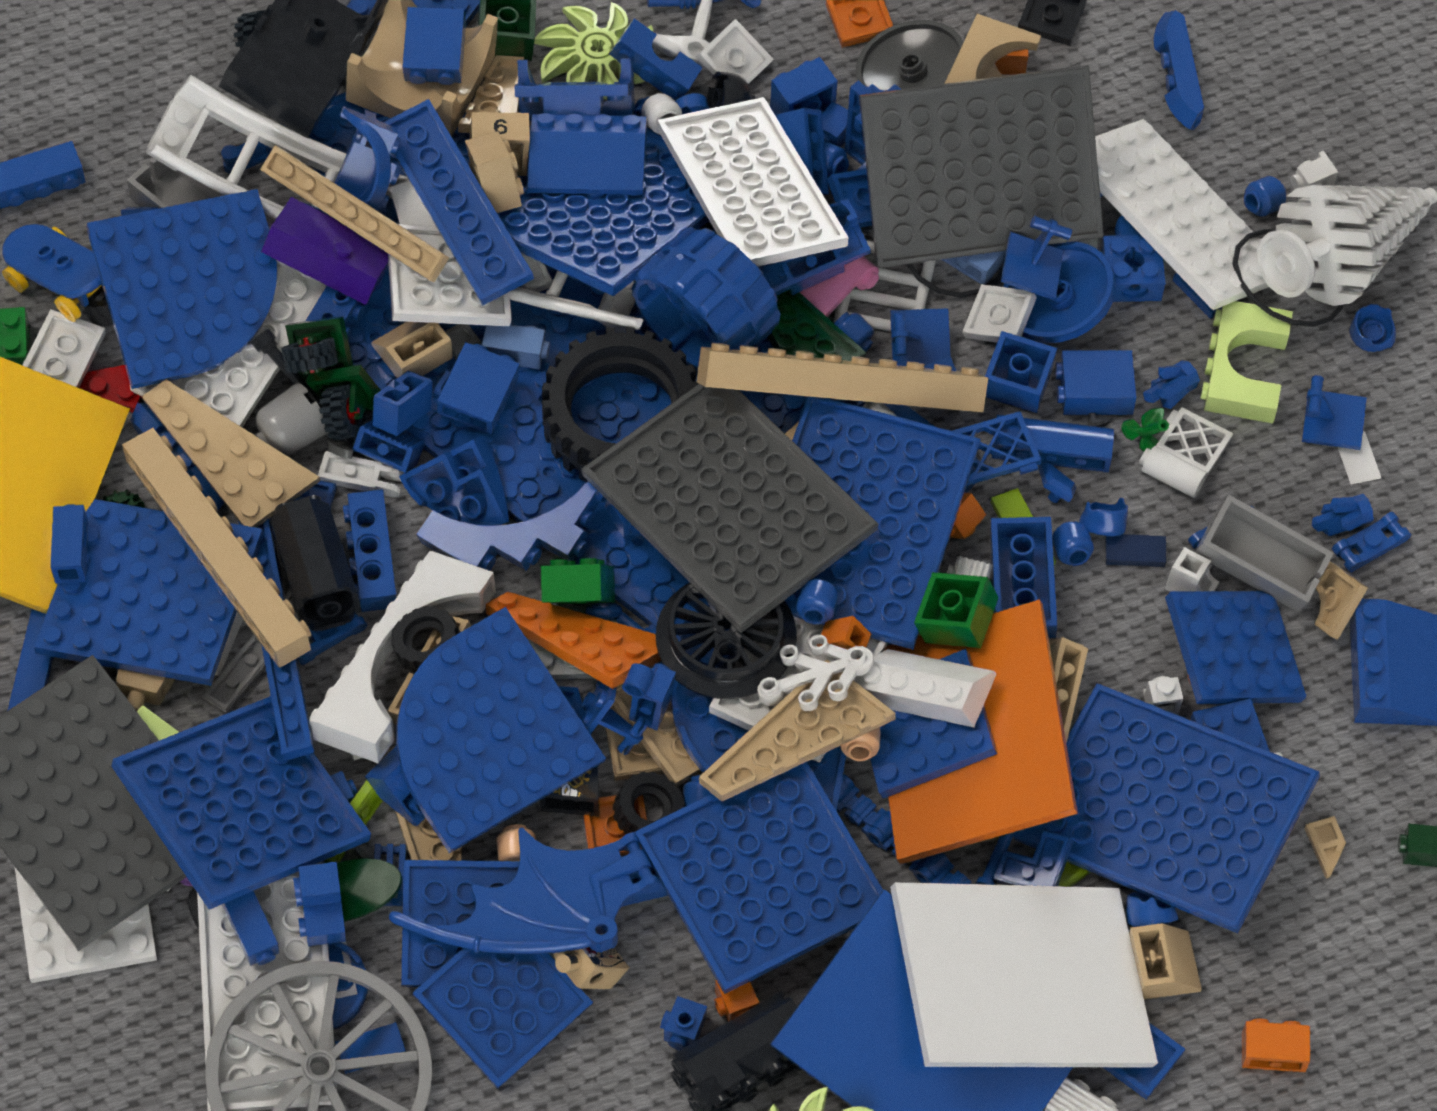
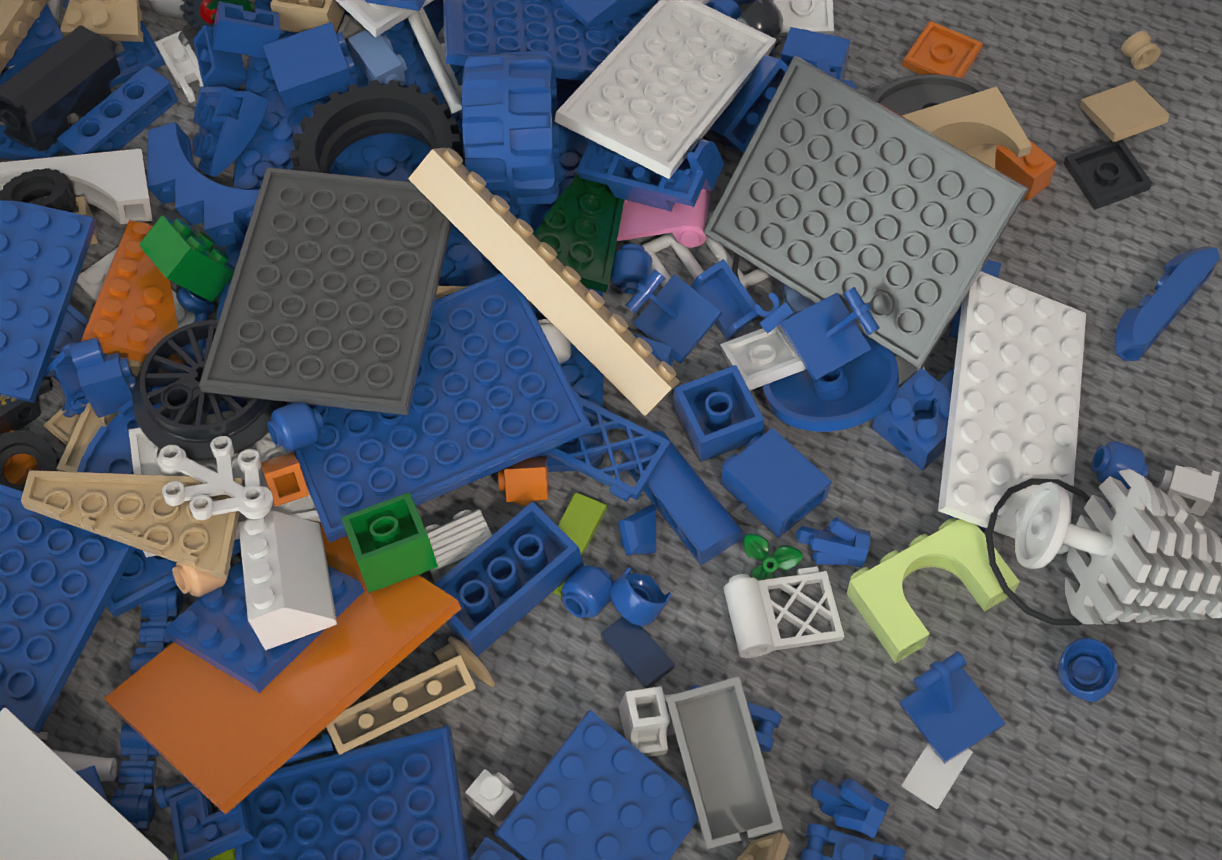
camera: 55 degrees right, 0 degrees up
(938, 293) = (728, 295): none -> blue panel
(987, 279) = (775, 315): none -> blue tile

